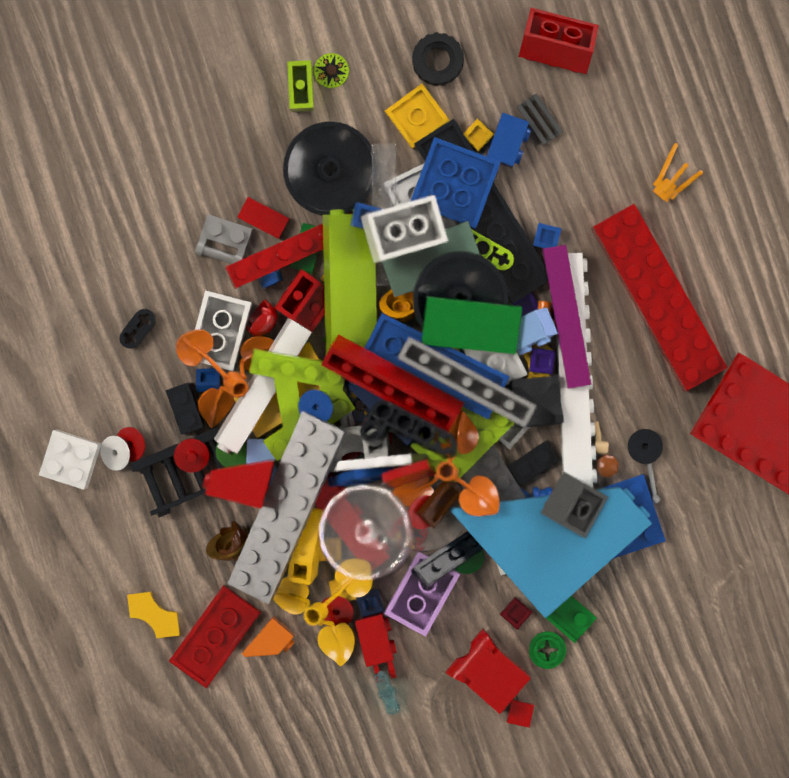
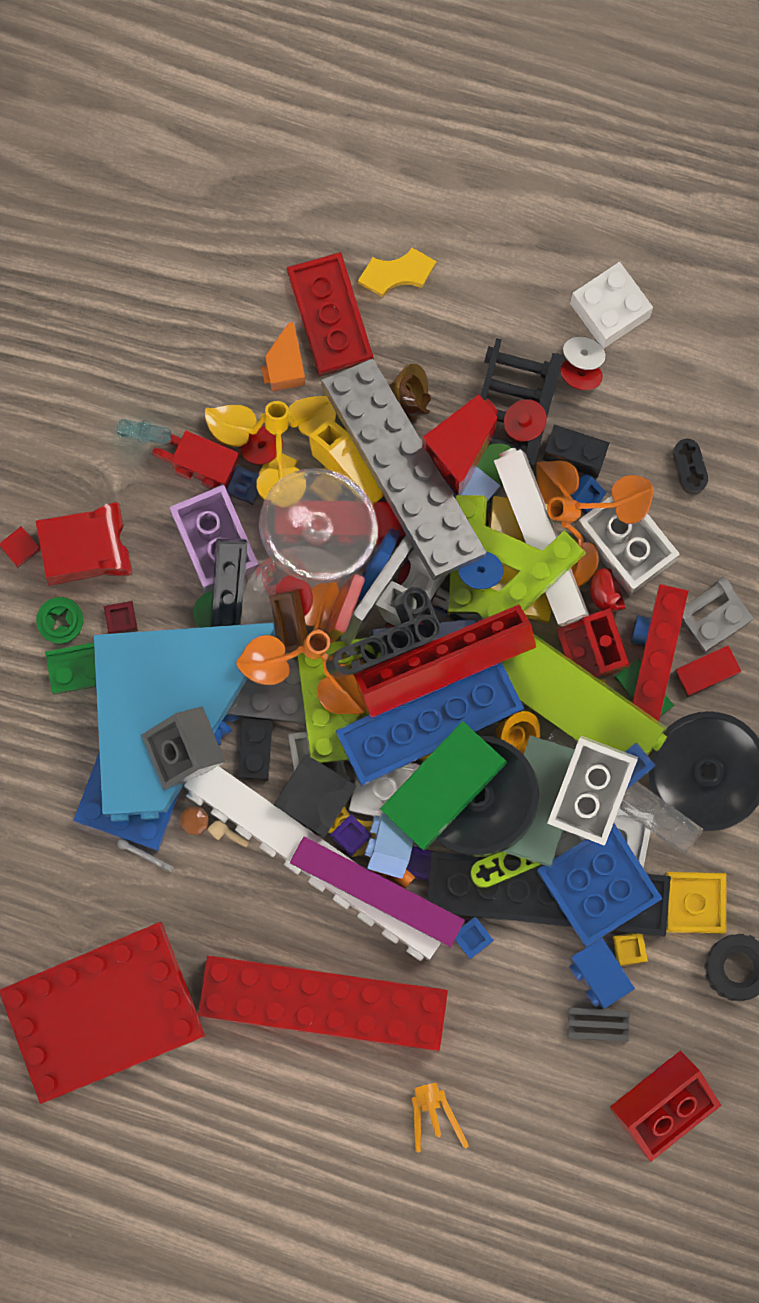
camera: 125 degrees right, 10 degrees down
(466, 382) = (390, 733): light grey brick -> none
(645, 446) = (184, 873): black piece -> none

